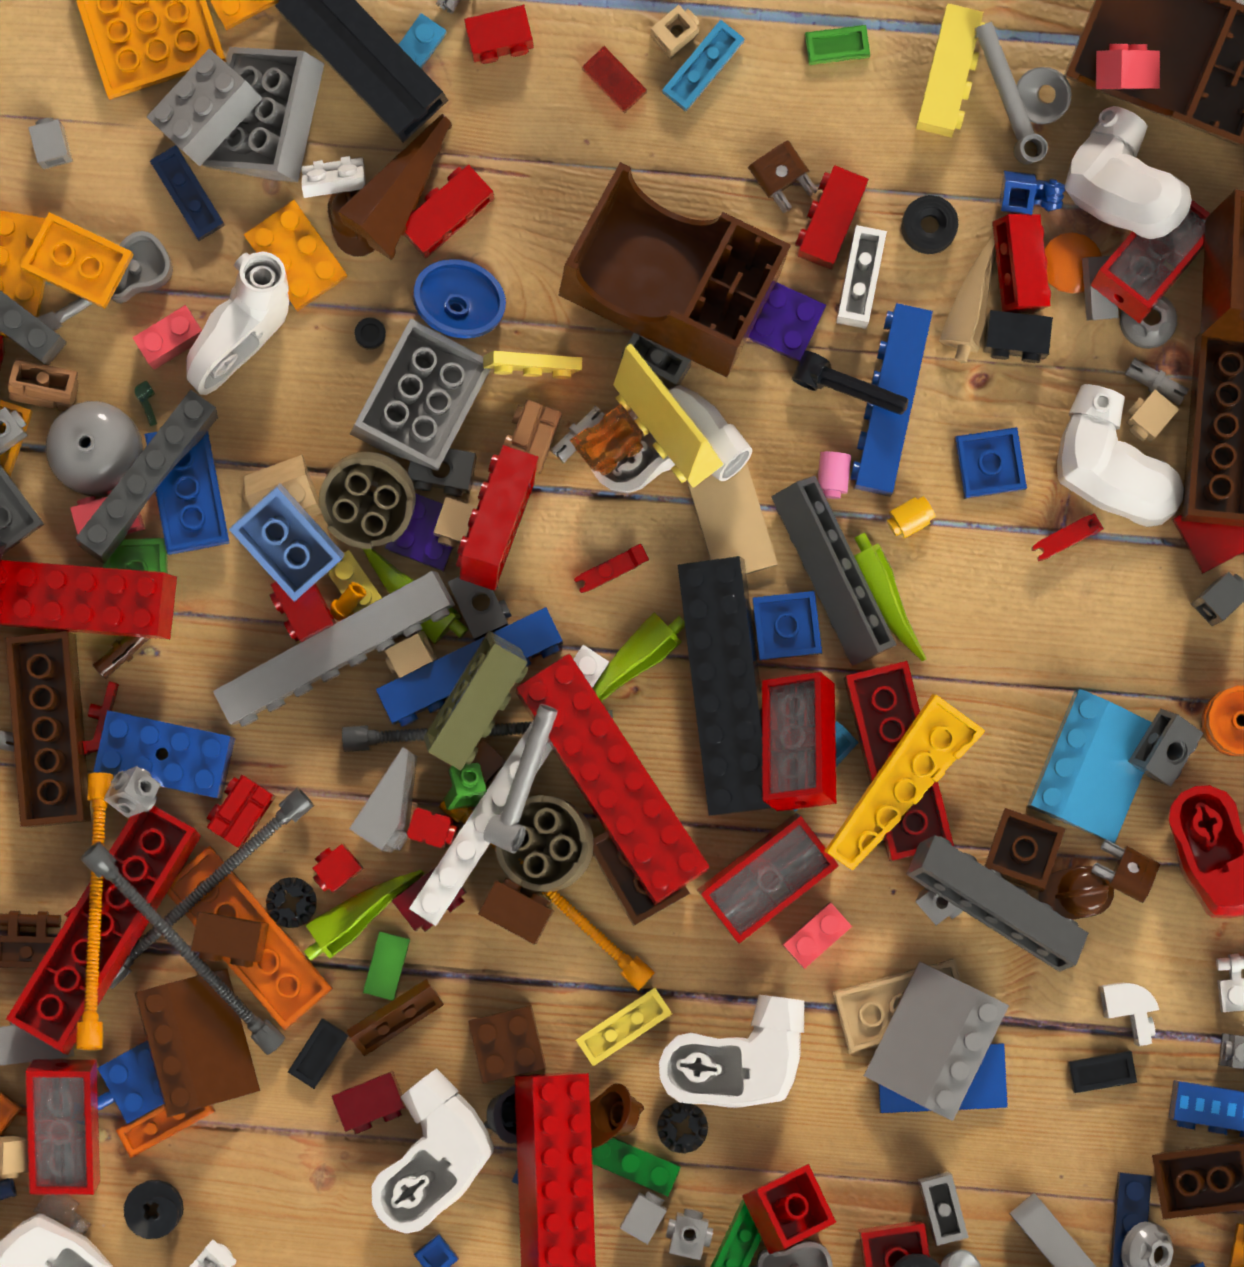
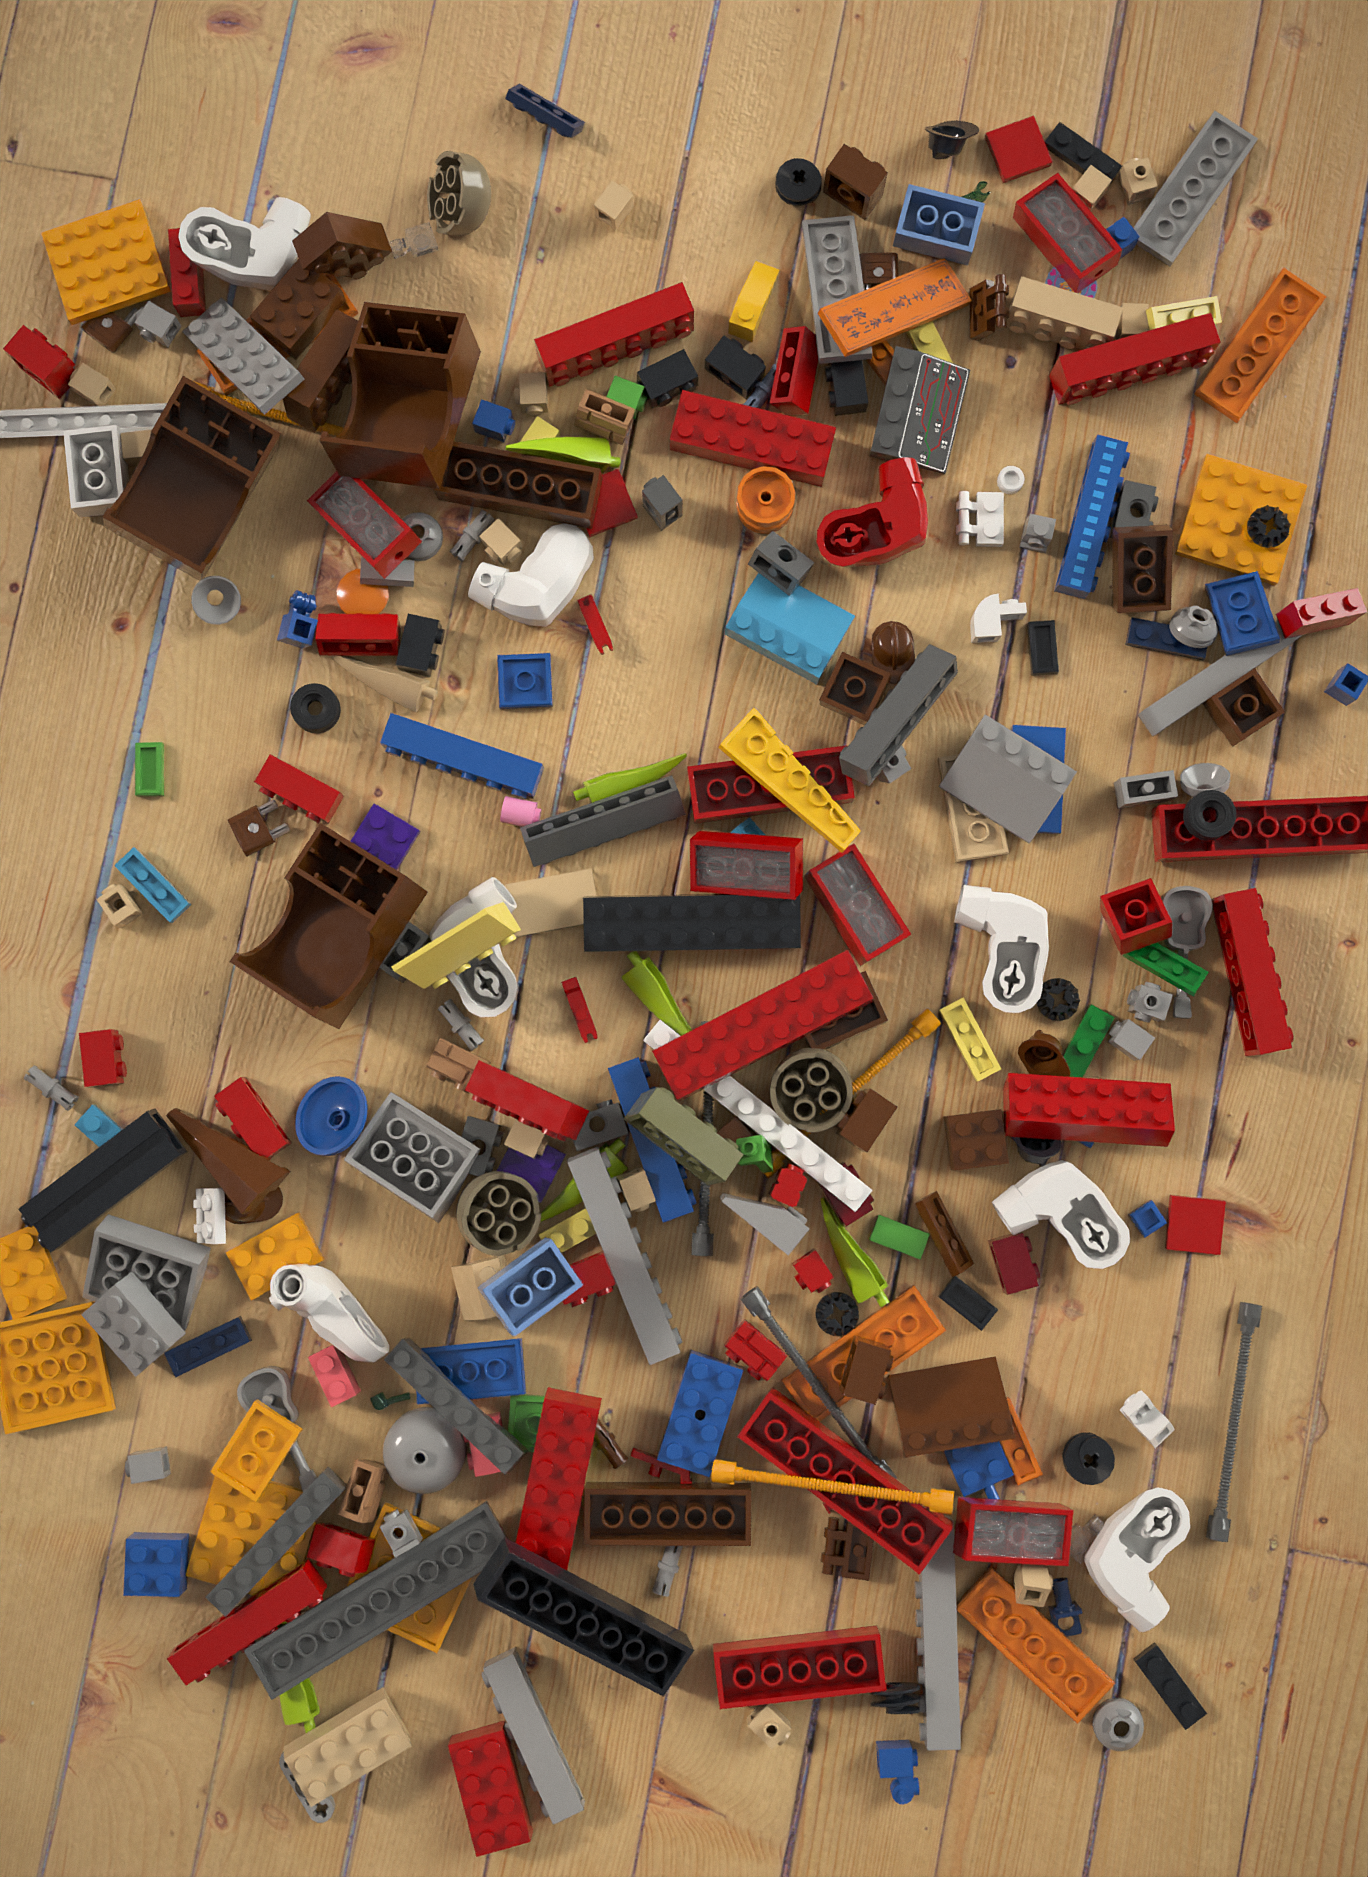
camera: 90 degrees left, 0 degrees up
(101, 863) = (793, 1476): dark grey hose -> none
(132, 791) = (731, 1443): light grey brick -> none
(347, 602) = (589, 1244): light orange pin -> none
(370, 333) = (351, 1197): black tile -> none
(504, 829) = (797, 1121): light grey piece -> none
(532, 364) = (396, 1058): light yellow plate -> none
(609, 441) = (471, 997): clear orange cylinder -> none
(614, 79) = (155, 963): clear red plate -> none
(787, 625) = (644, 866): blue plate -> none
(816, 372) = (430, 817): black axle -> none
(817, 935) = (909, 869): coral brick -> none
(861, 277) = (353, 770): white brick -> none
(910, 517) = (564, 752): yellow brick -> none
(949, 71) = (183, 675): light yellow brick -> none
(1010, 95) = (213, 627): light grey piece -> none
(1118, 186) = (303, 542): white piece -> none
(1128, 67) = (201, 523): coral brick -> none
(1132, 873) = (882, 603): reddish brown piece -> none

